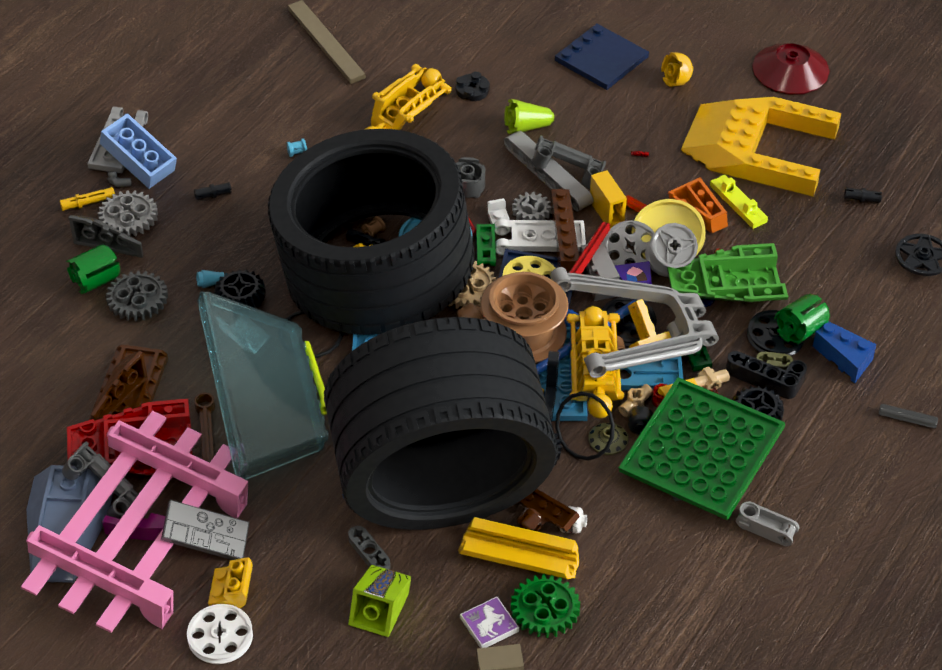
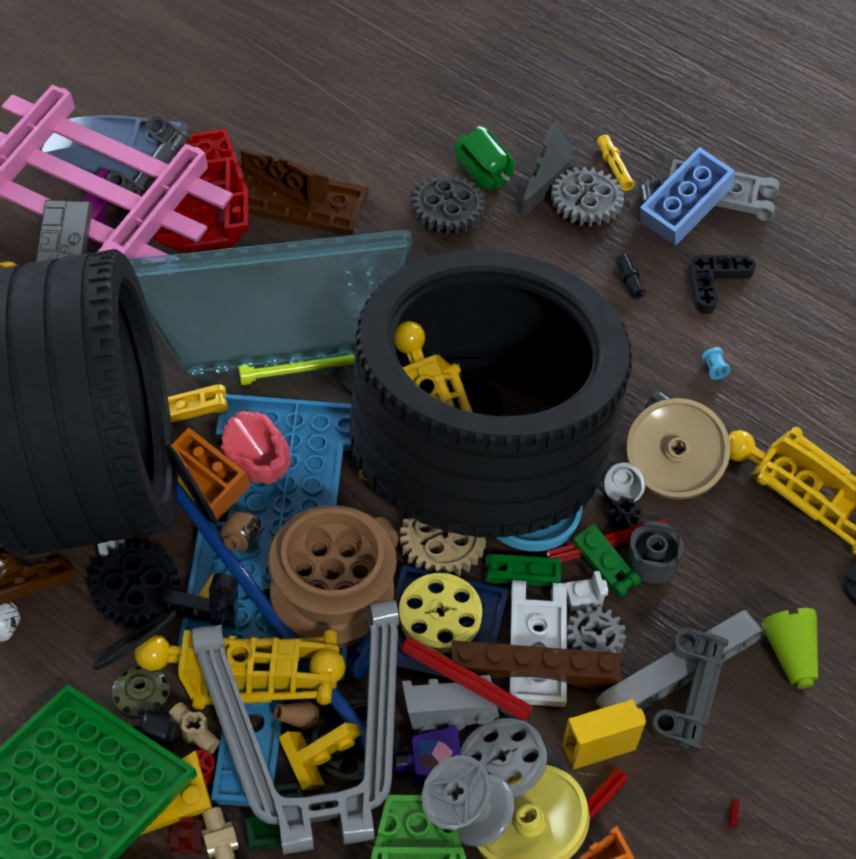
camera: 90 degrees right, 5 degrees up
(234, 152) = (707, 275): none -> black beam
(477, 202) = (605, 559): none -> green plate

